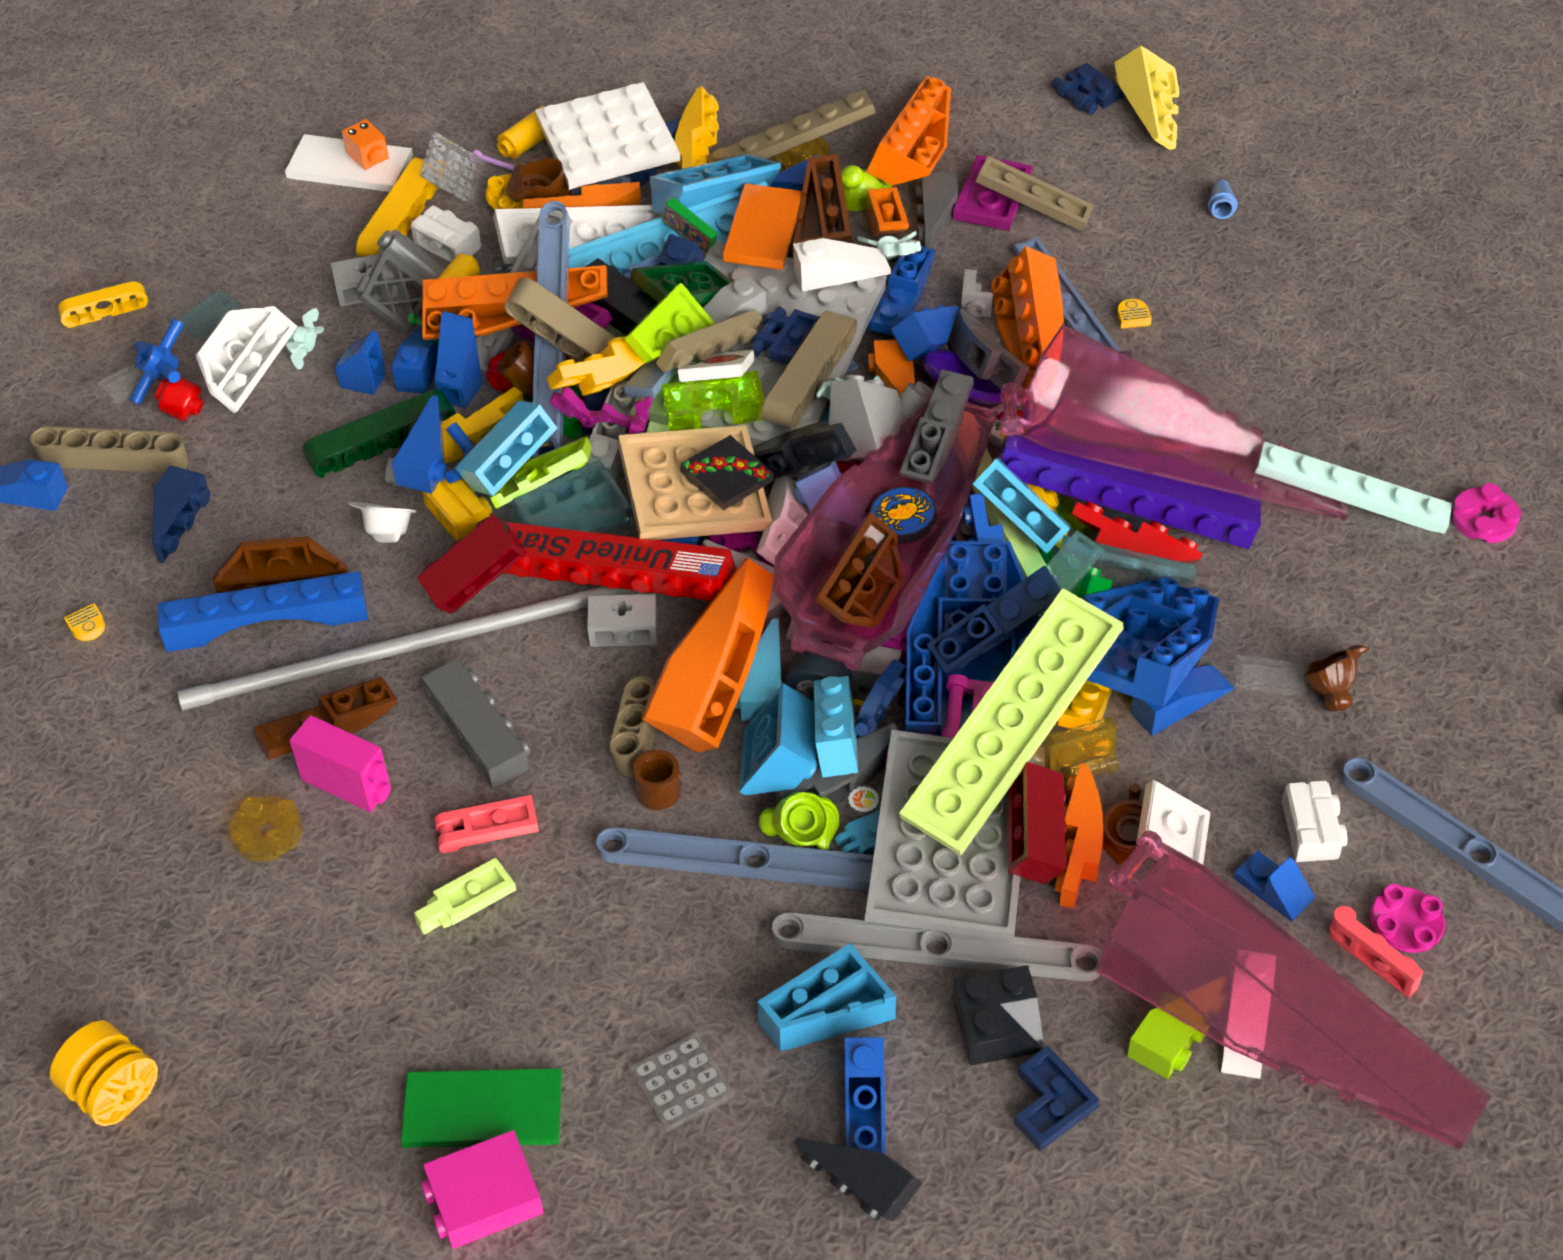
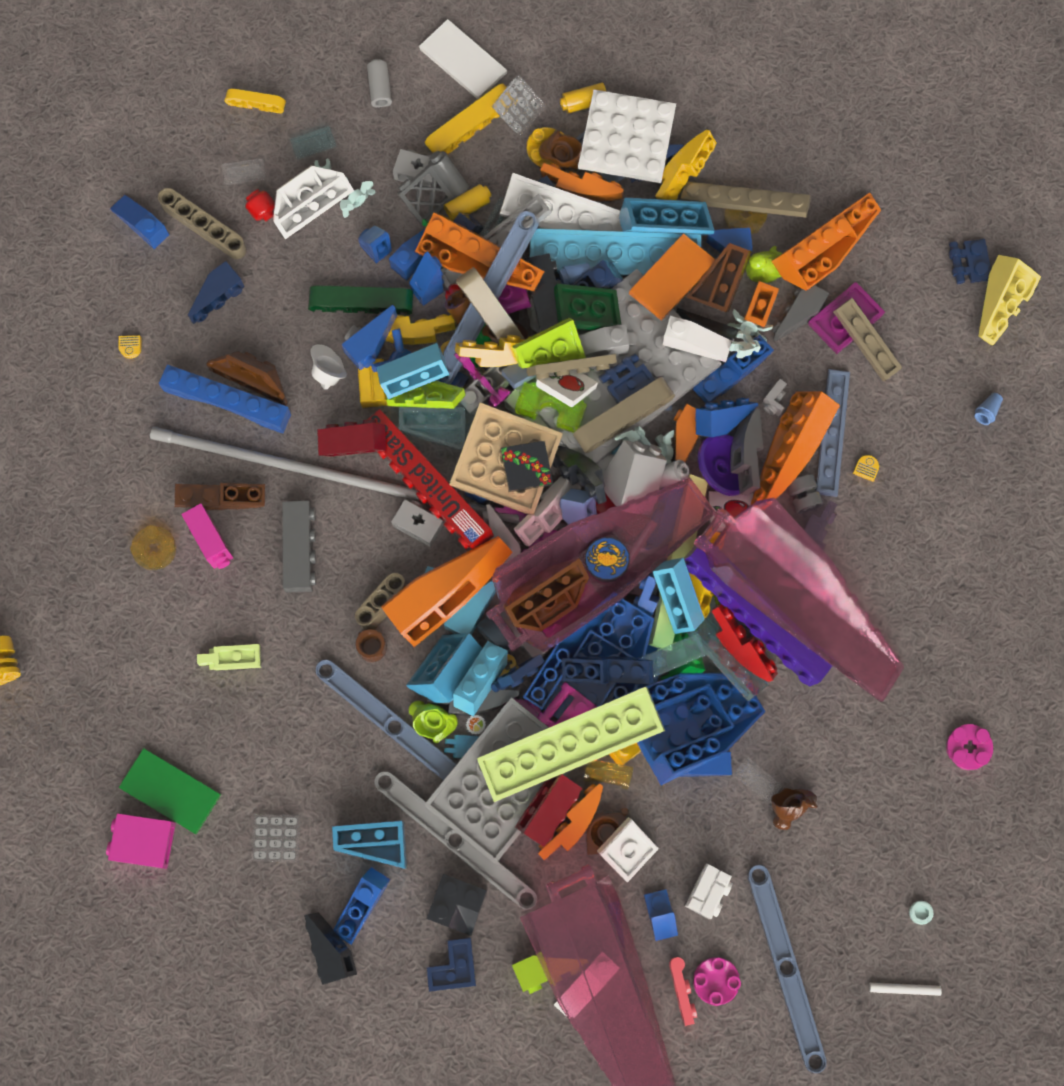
camera: 30 degrees right, 25 degrees up
(157, 361) = (258, 173): blue bar -> none
(258, 223) = (379, 83): none -> light grey brick
(365, 144) = (475, 56): orange brick -> none
(445, 234) = (485, 160): white brick -> none
(486, 823) = (268, 616): coral plate -> none
(493, 161) = (563, 124): lavender hinge -> none
(688, 225) = (626, 251): tile -> none
(938, 428) = (665, 511): dark grey slope -> none
(1353, 488) = (899, 685): light aqua plate -> none

